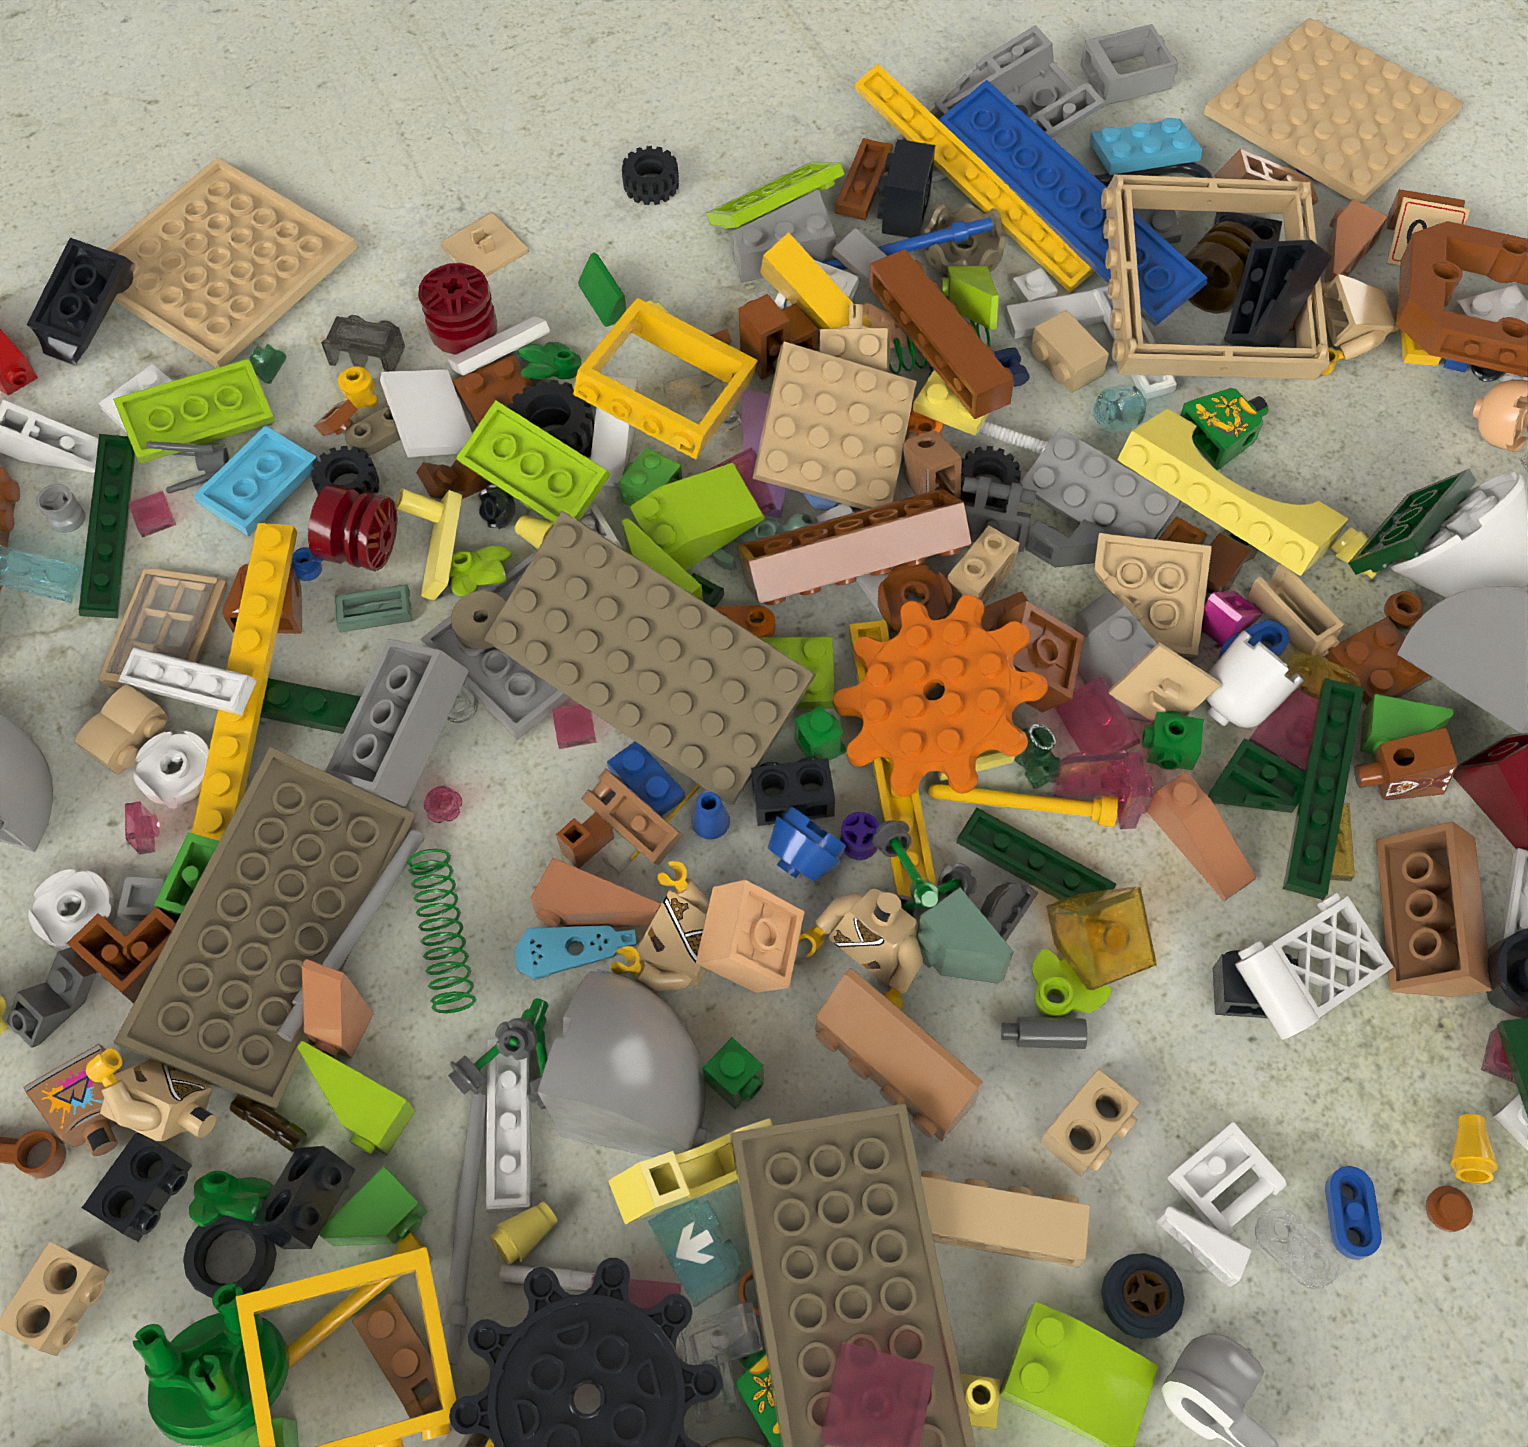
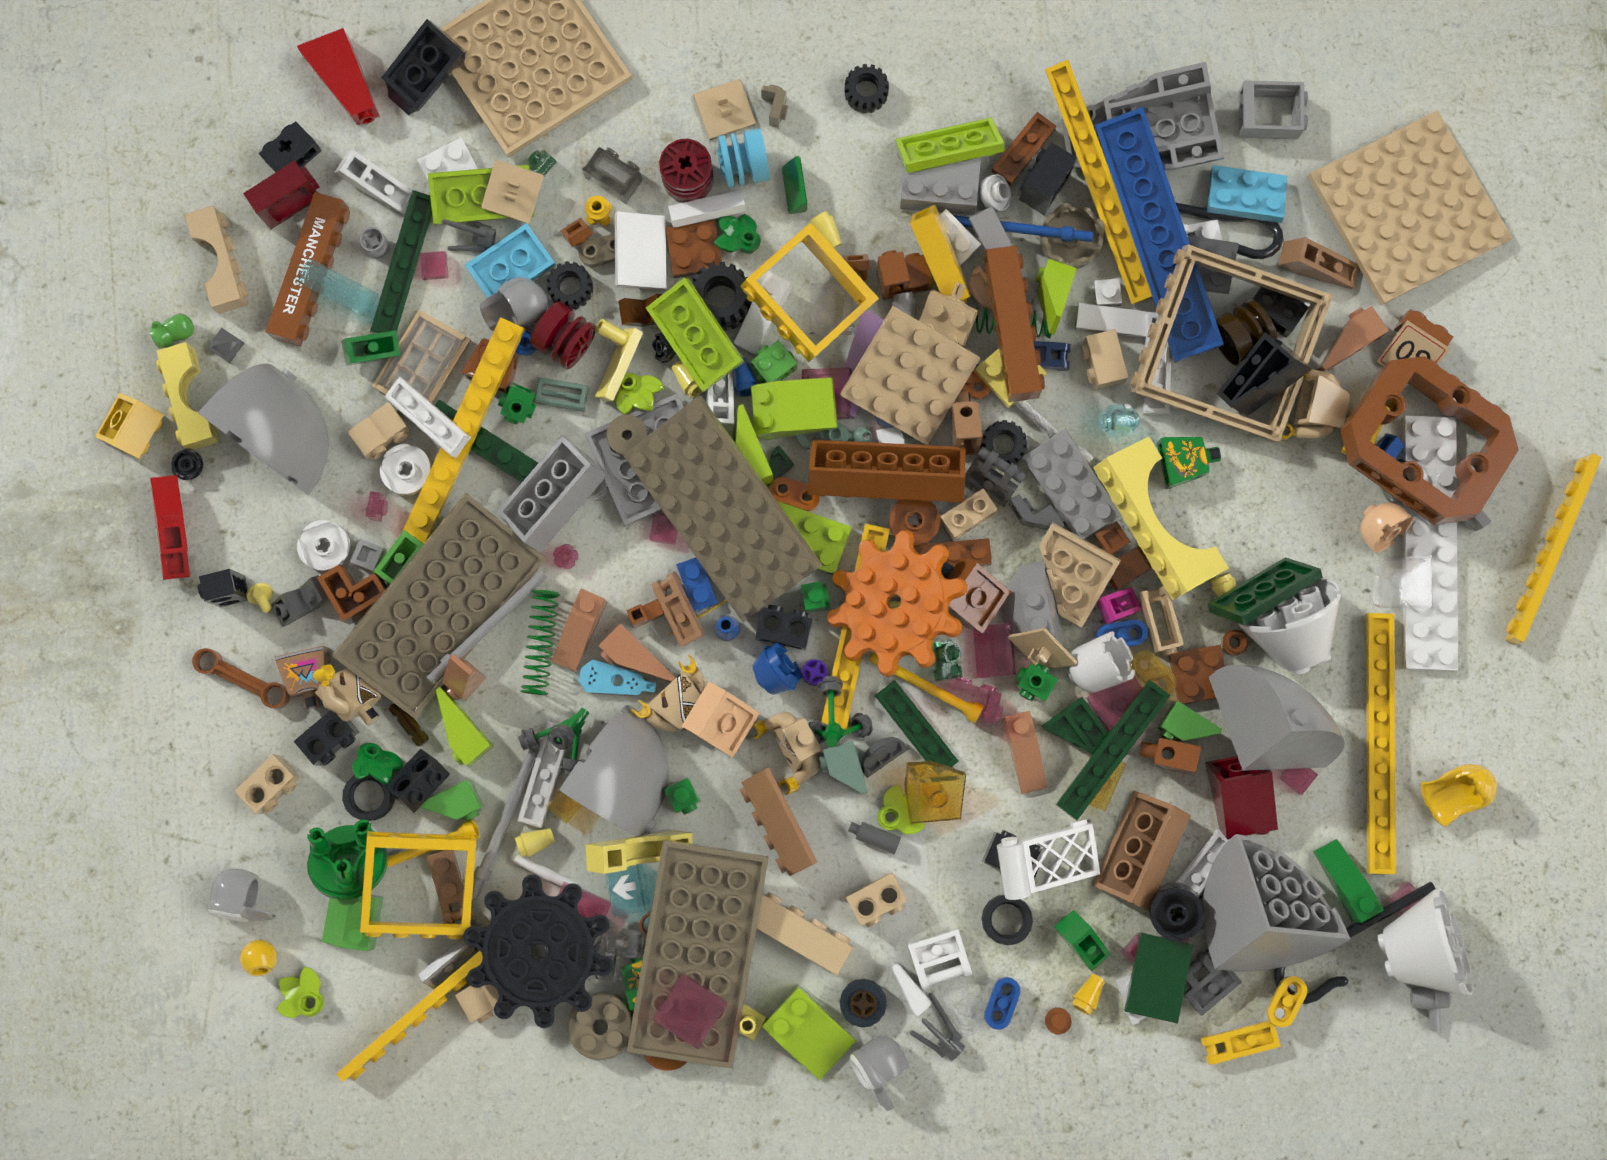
camera: 20 degrees right, 20 degrees up
(81, 628) = (370, 347): none -> green slope
(235, 393) = (512, 191): none -> tan piece
(287, 494) = (516, 301): none -> light grey piece
(313, 618) = (519, 395): none -> green brick
(494, 892) = (579, 629): none -> nougat slope
(529, 271) = (743, 158): none -> medium azure wheel
(542, 211) = (779, 108): none -> dark tan bracket
(554, 1155) = (563, 806): none -> clear yellow plate
(614, 509) = (743, 379): none -> blue cone
(847, 218) = (995, 192): none -> white plate
(1305, 1306) = (949, 1044): none -> dark grey plant
(1316, 1059) = (1009, 939): none -> black tyre
(1421, 1069) = (1082, 940): none -> green slope

